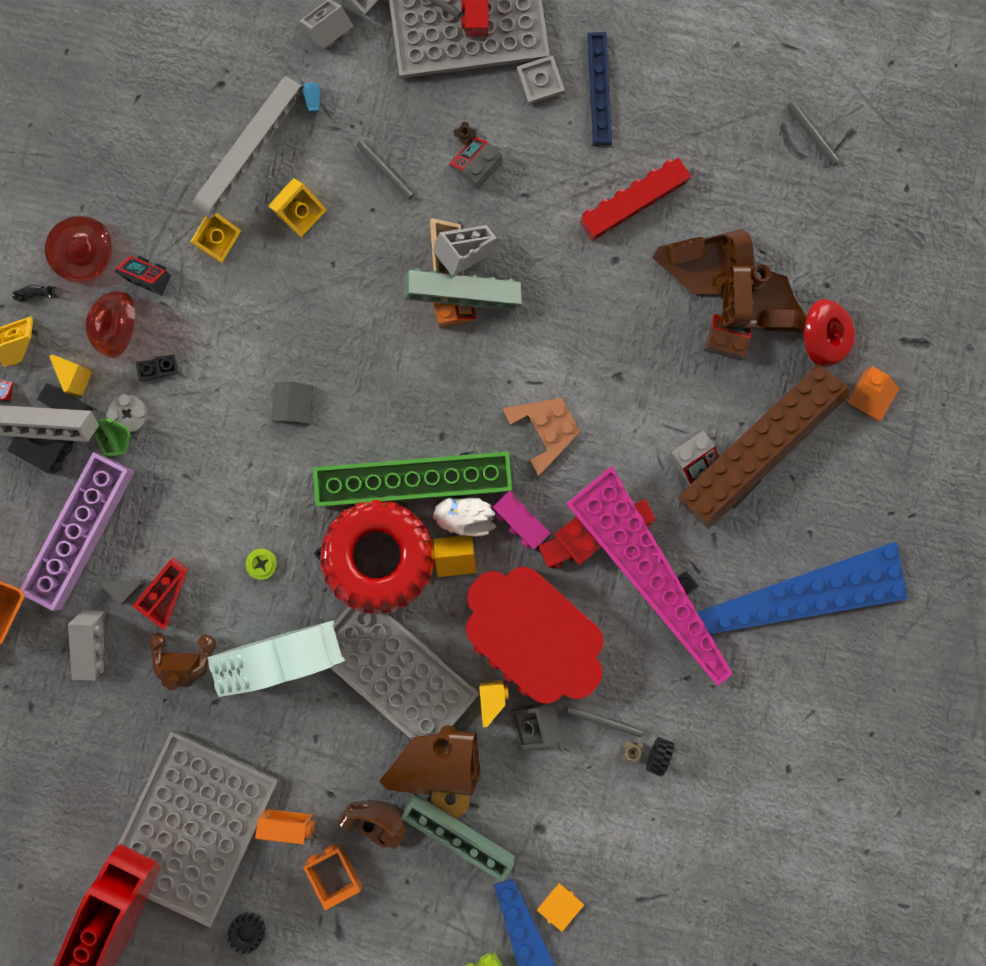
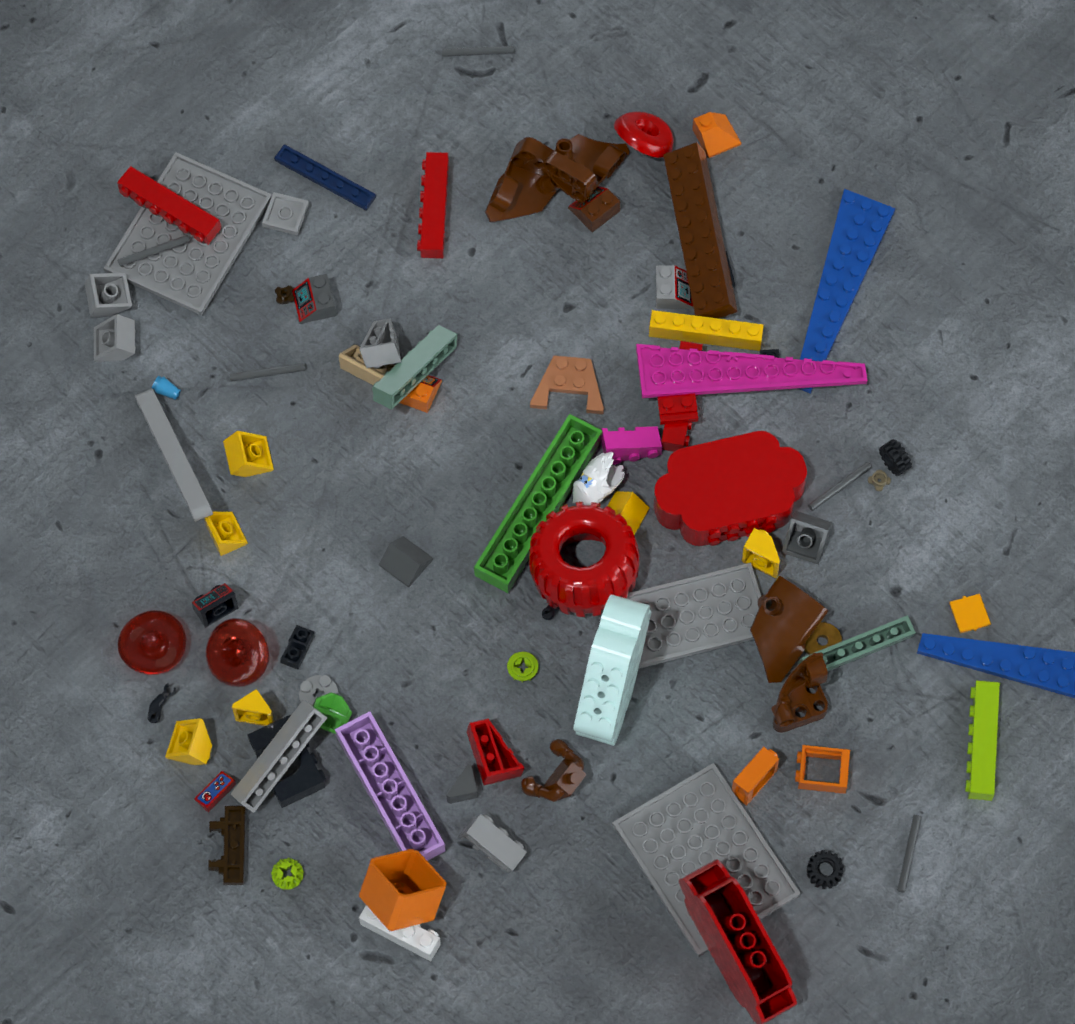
camera: 55 degrees left, 20 degrees down
(673, 513) = (706, 330): none -> yellow brick

